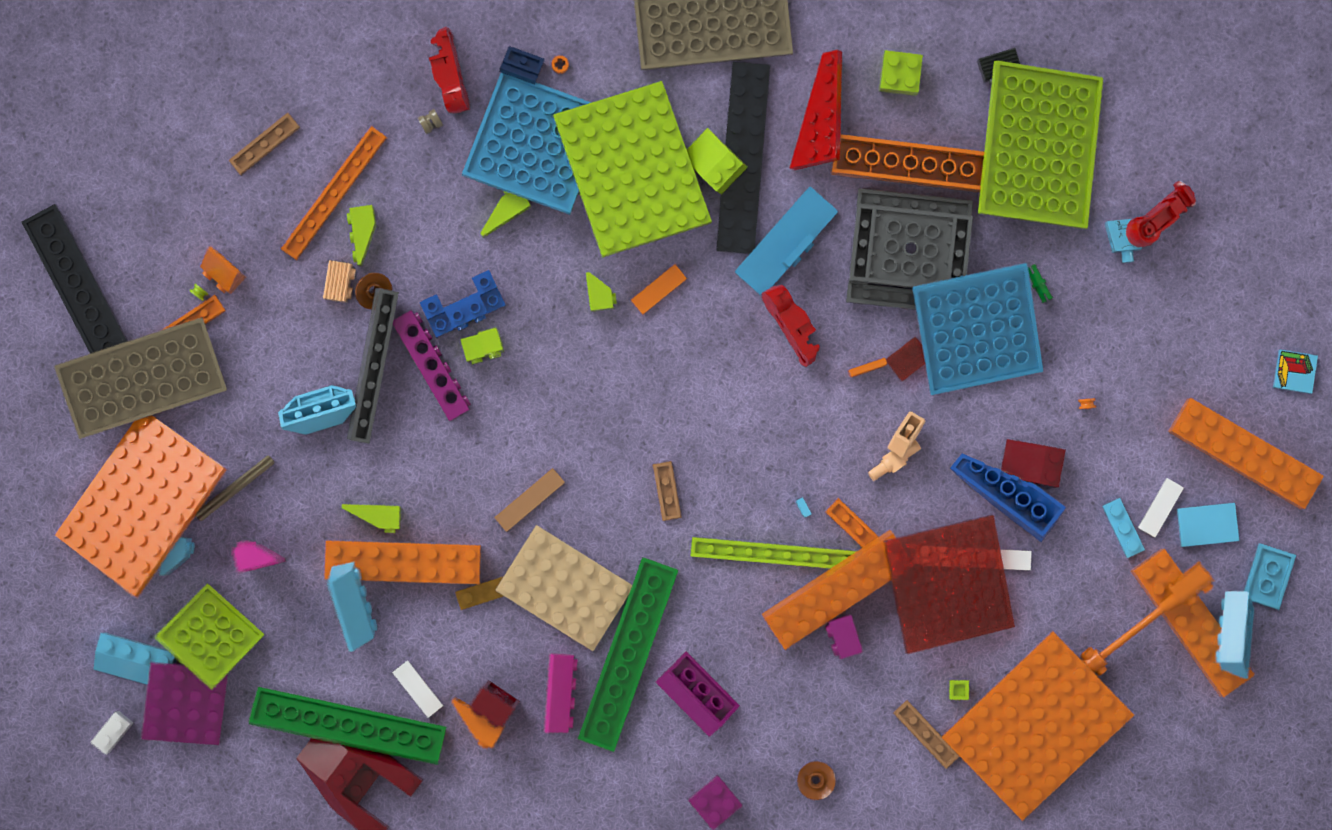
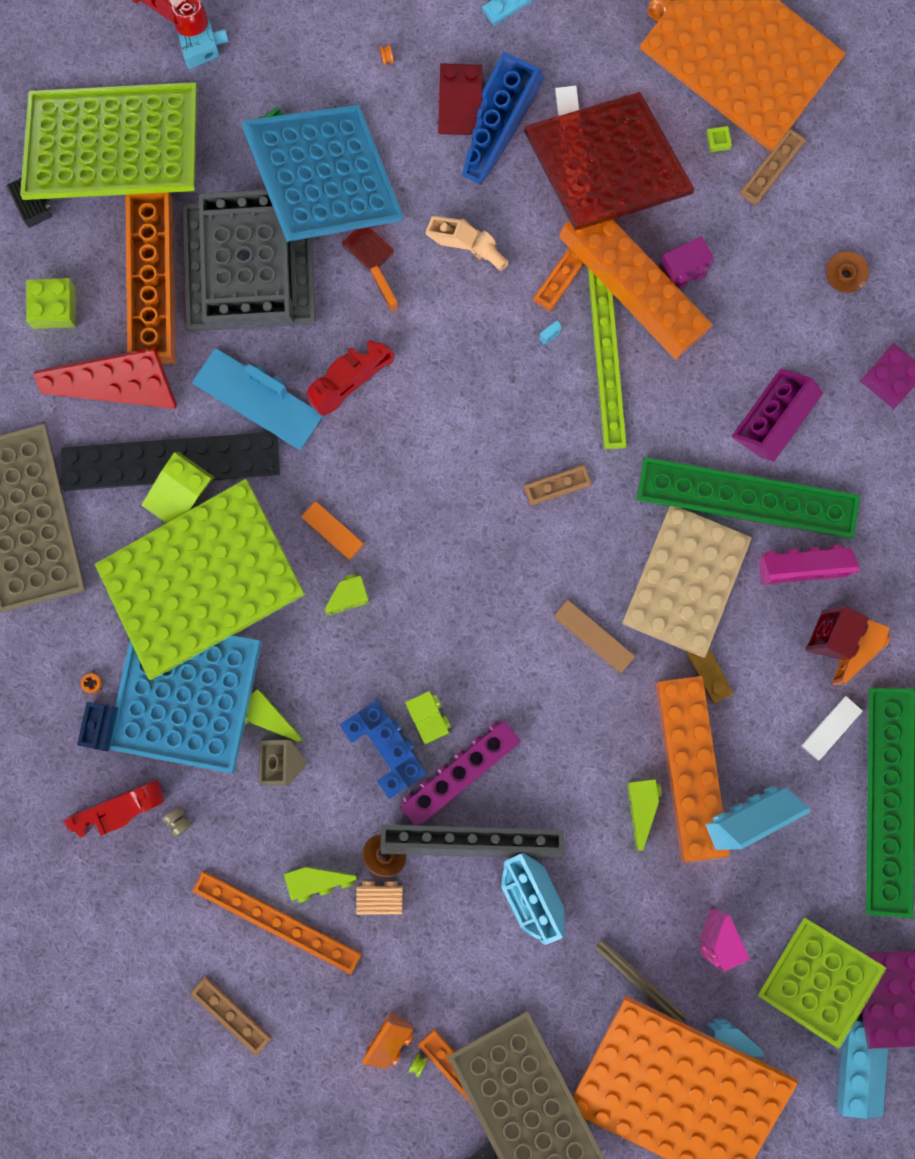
camera: 90 degrees left, 5 degrees down
(465, 214) = (279, 762): none -> dark tan slope

